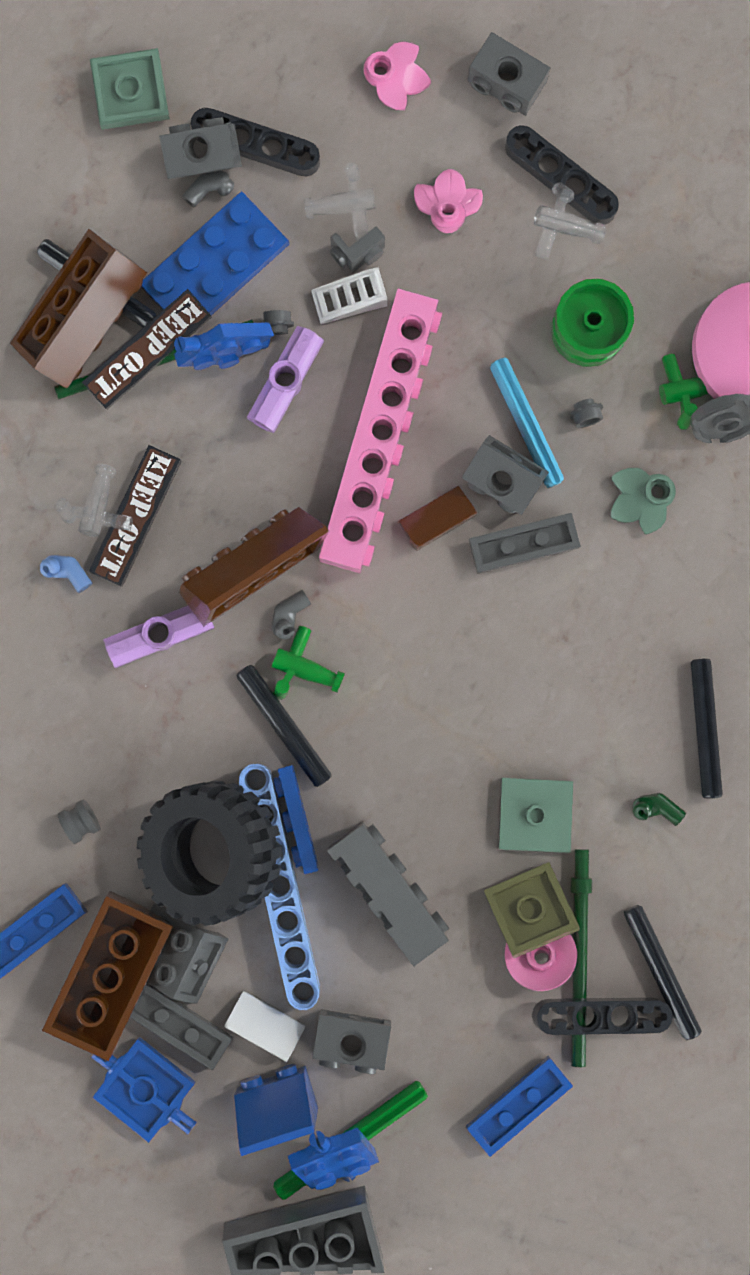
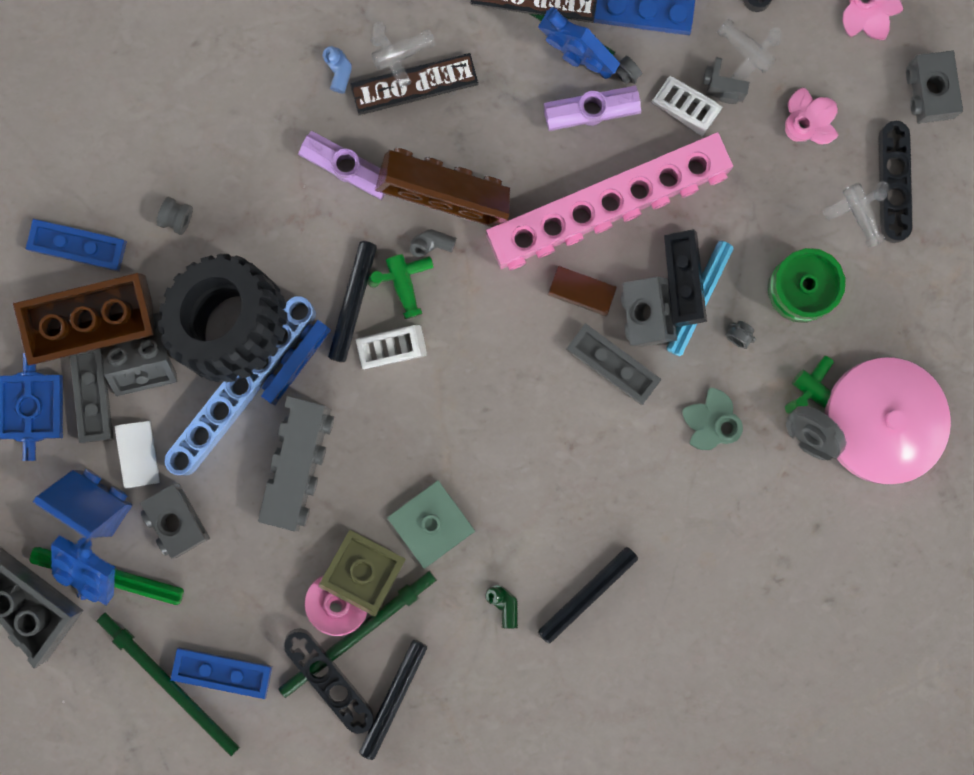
camera: 55 degrees right, 0 degrees up
(365, 697) = (417, 341): none -> white slope
(420, 1170) = (124, 640): none -> dark green bar
(501, 420) = (685, 278): none -> black plate

